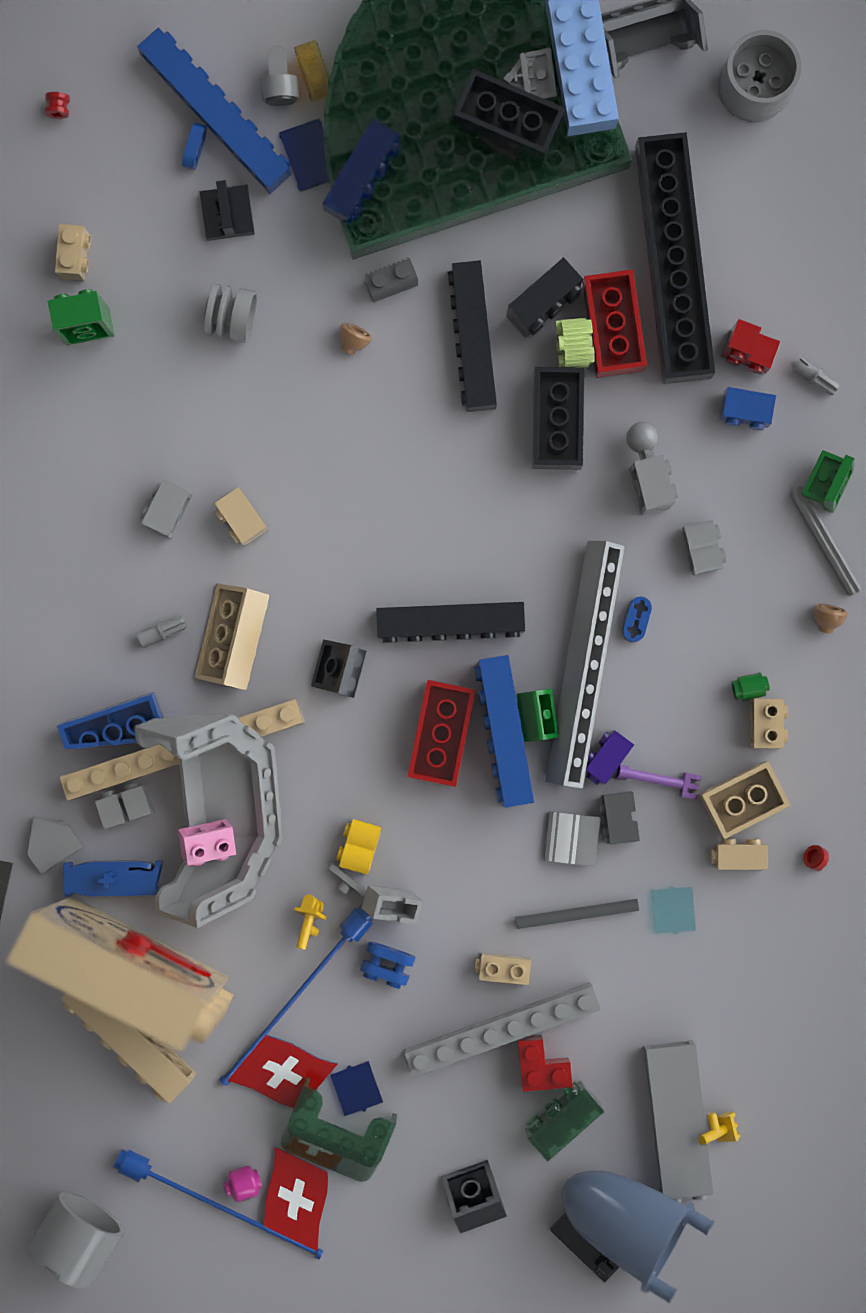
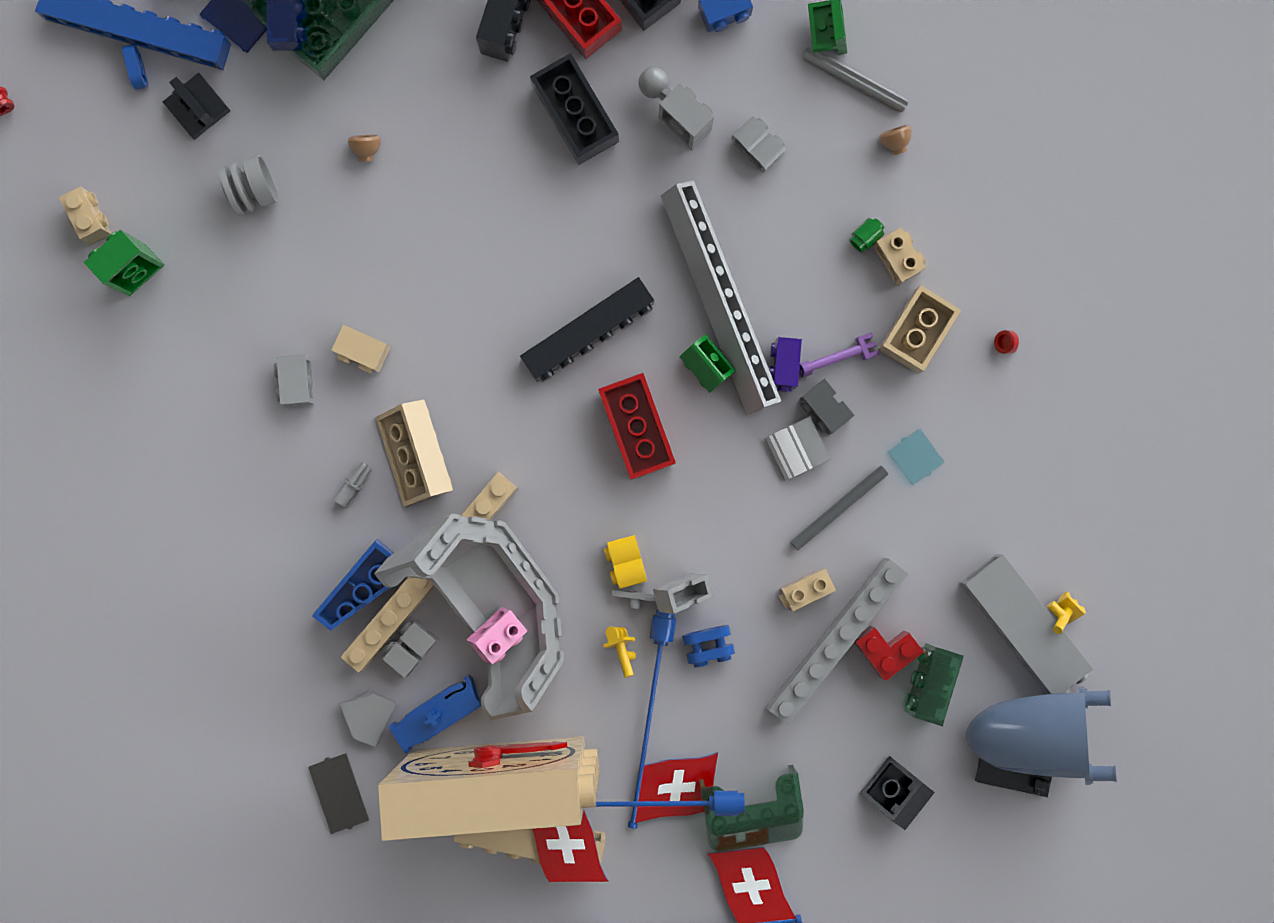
camera: 35 degrees left, 0 degrees up
(157, 1069) = (572, 853): none -> flag
(242, 1184) = (700, 901): dark pink head -> none
(338, 668) = (518, 425): black bracket -> none
(356, 1088) = (745, 763): clear blue piece -> none
(391, 280) = (366, 78): dark grey brick -> none
(473, 336) = (463, 83): black brick -> none
(505, 731) = (688, 392): blue brick -> none
(574, 343) = (550, 37): yellowish green brick -> none
(642, 621) = (745, 234): blue beam -> none
(735, 856) = (944, 378): tan brick -> none

